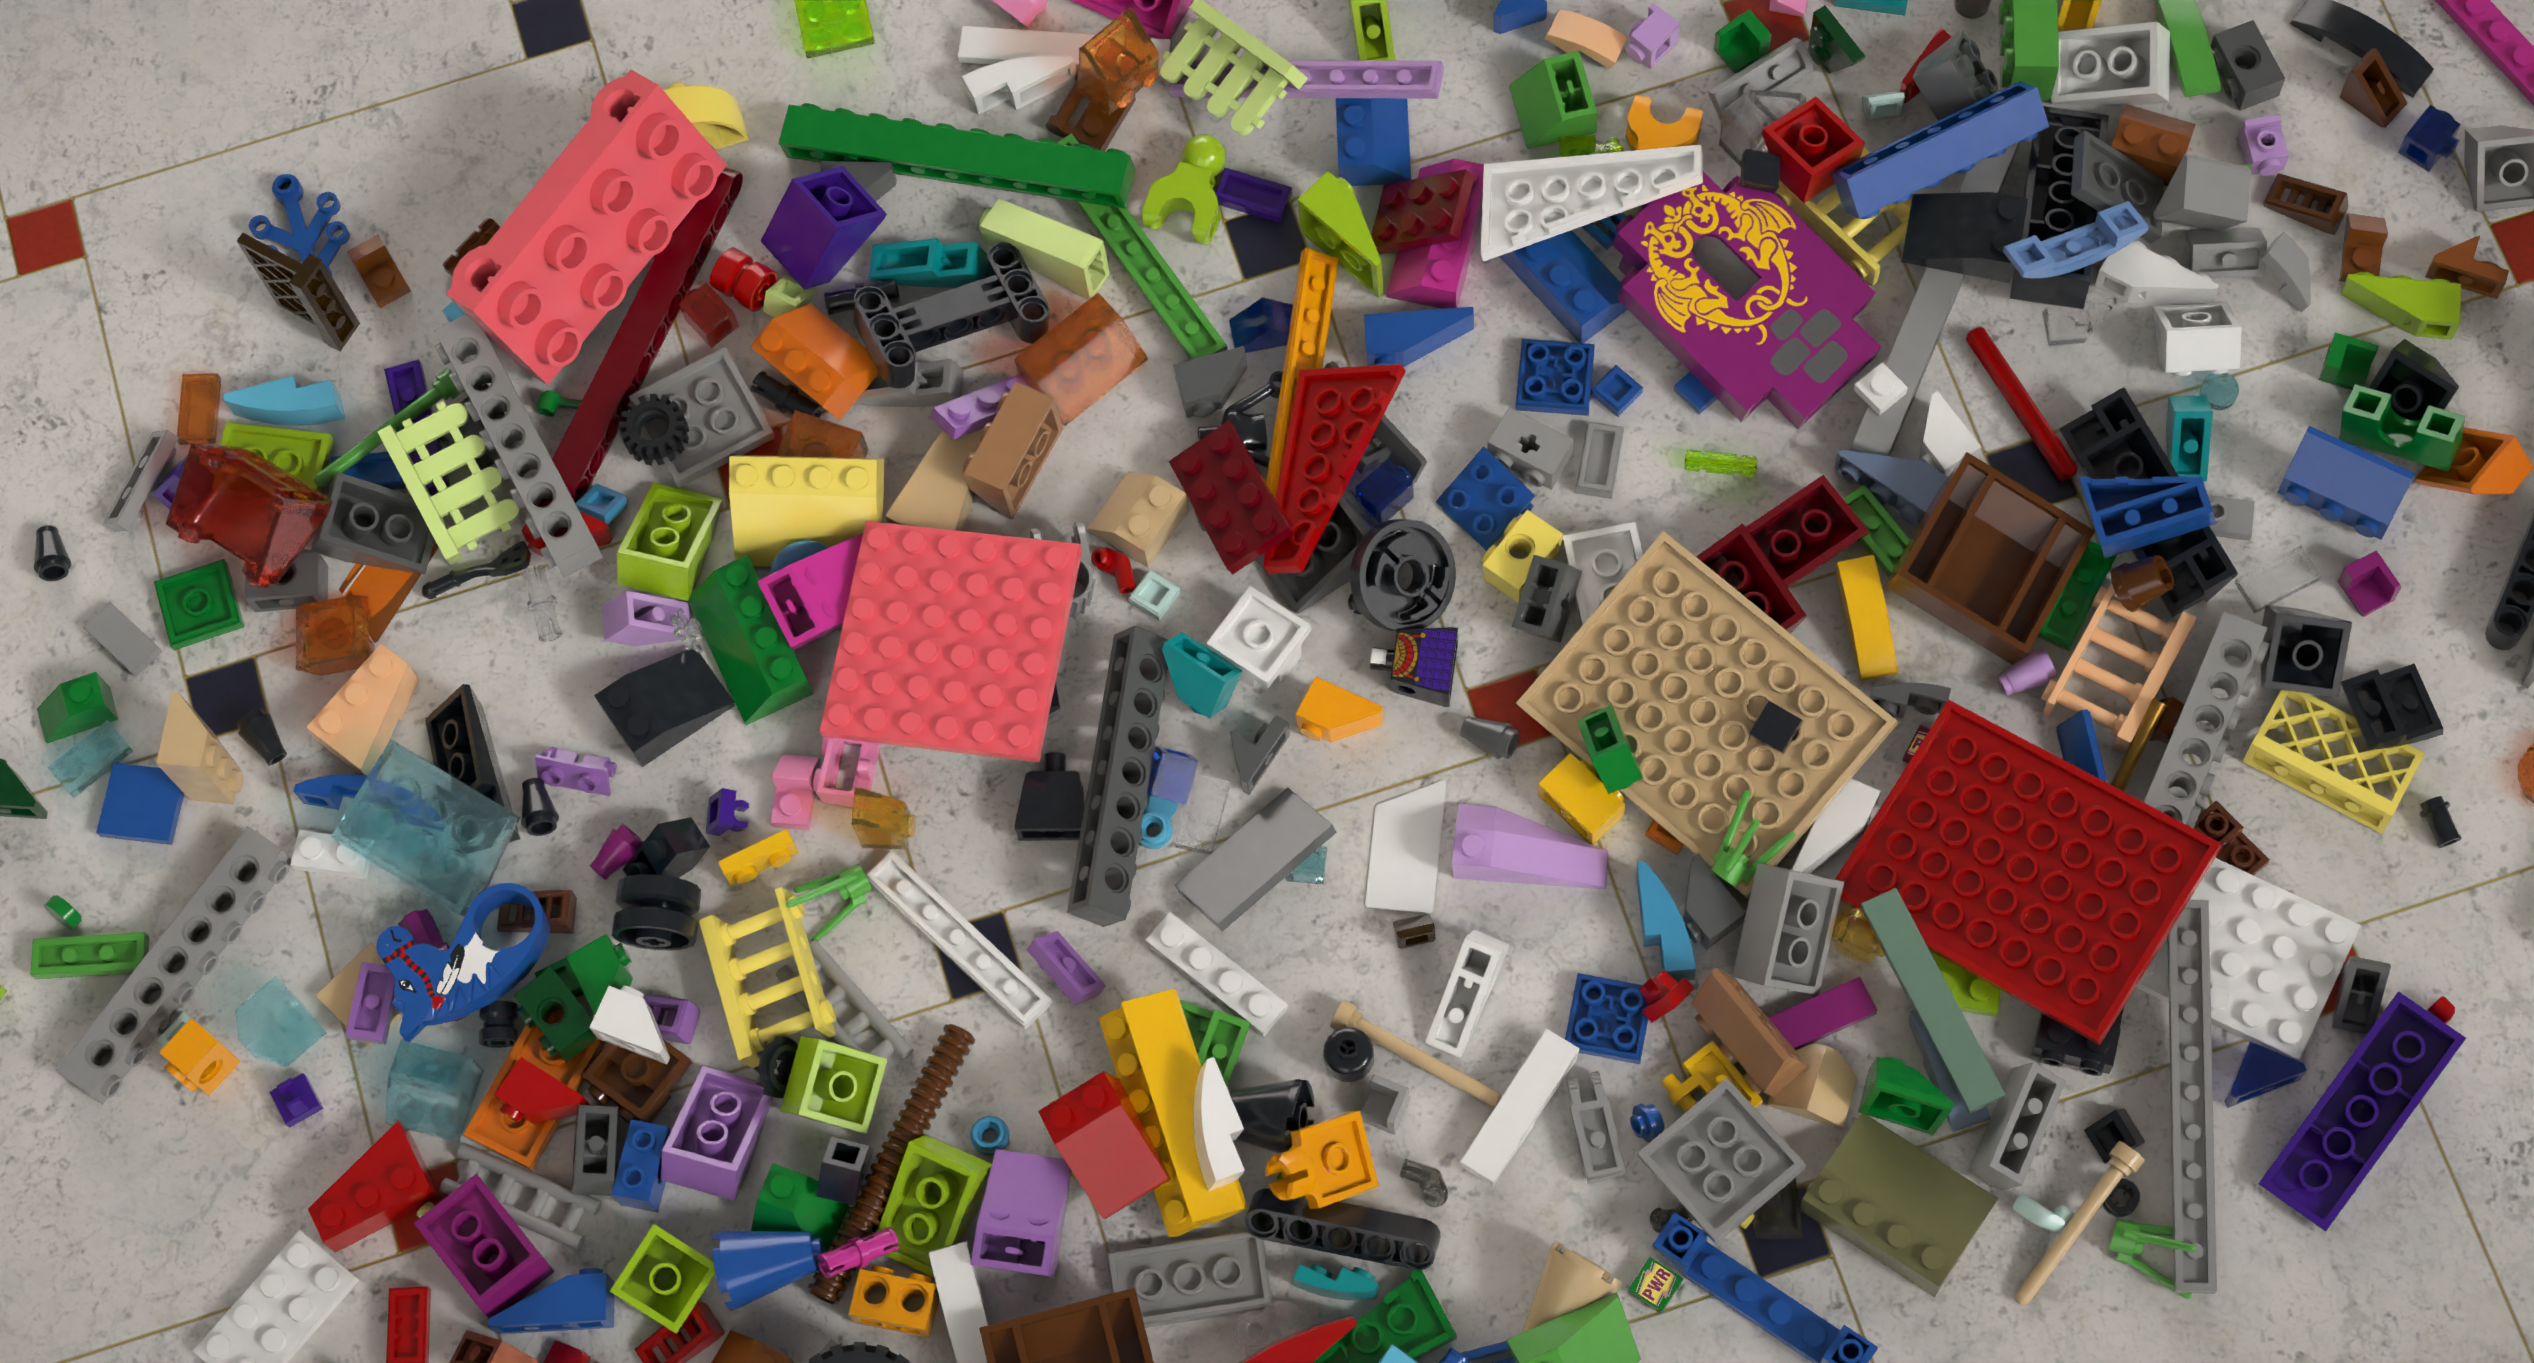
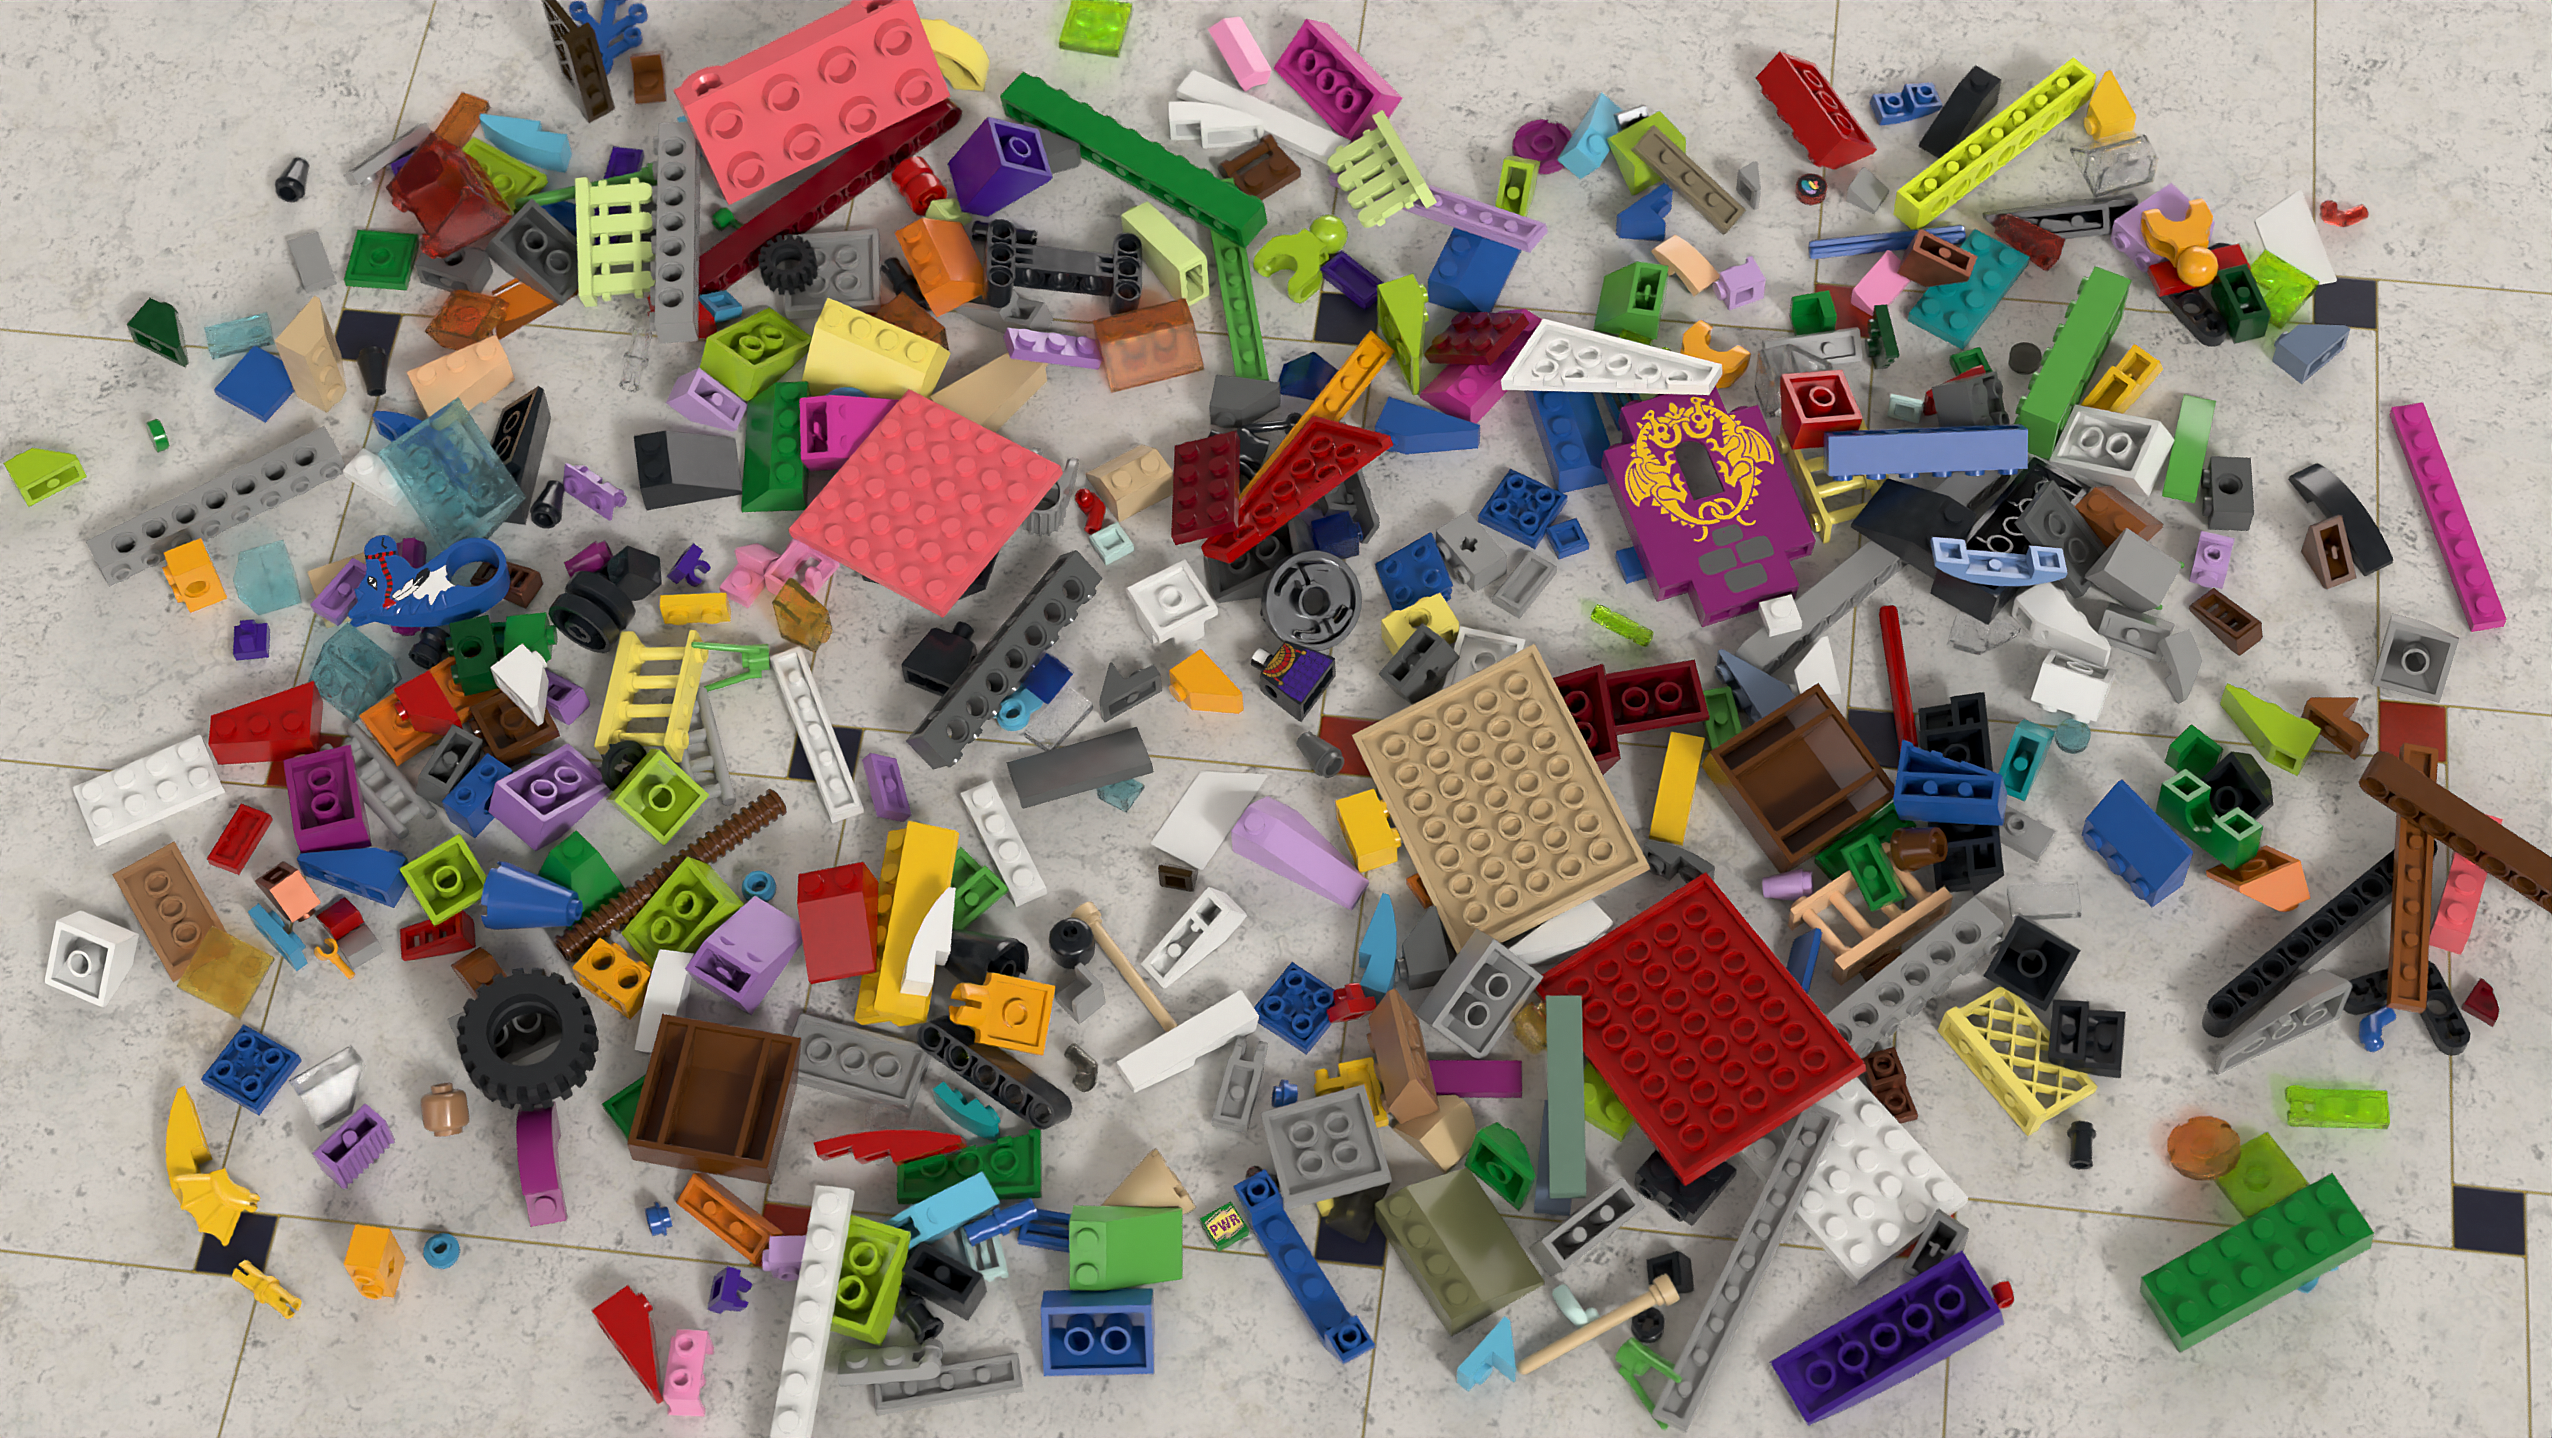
camera: 20 degrees right, 10 degrees down
(76, 707) = (251, 294): green slope -> none
(88, 955) = (155, 472): bright green plate -> none
(507, 563) = (626, 320): black piece -> none
(687, 629) = (734, 421): clear plant -> none
(708, 314) = (878, 202): clear red brick -> none
(843, 1170) = (628, 857): black slope -> none
(858, 1252) = (605, 924): dark pink pin -> none
(928, 263) = (1067, 228): teal slope -> none
(1013, 448) = (1057, 387): medium nougat slope -> none
(1117, 63) = (1293, 134): clear orange slope -> none
(1200, 675) = (1110, 612): teal slope -> none
(1610, 749) = (1404, 797): green slope -> none
(1731, 863) = (1457, 923): bright green plant -> none
(1760, 171) = (1763, 406): black tile -> none
(1776, 727) = (1546, 830): black tile -> none
(1921, 29) = (1967, 360): none -> green tile
(1992, 1293) = (1493, 1351): none -> medium azure slope
(2109, 627) = (1873, 872): none -> green slope
(2138, 744) = (1850, 975): pearl gold bar -> none
(2262, 1072) = (1817, 1277): clear blue slope -> none
(2362, 245) = (2258, 669): dark orange slope -> none
(2369, 583) = (2119, 933): magenta panel -> none
(2430, 138) = (2359, 609): clear blue brick -> none

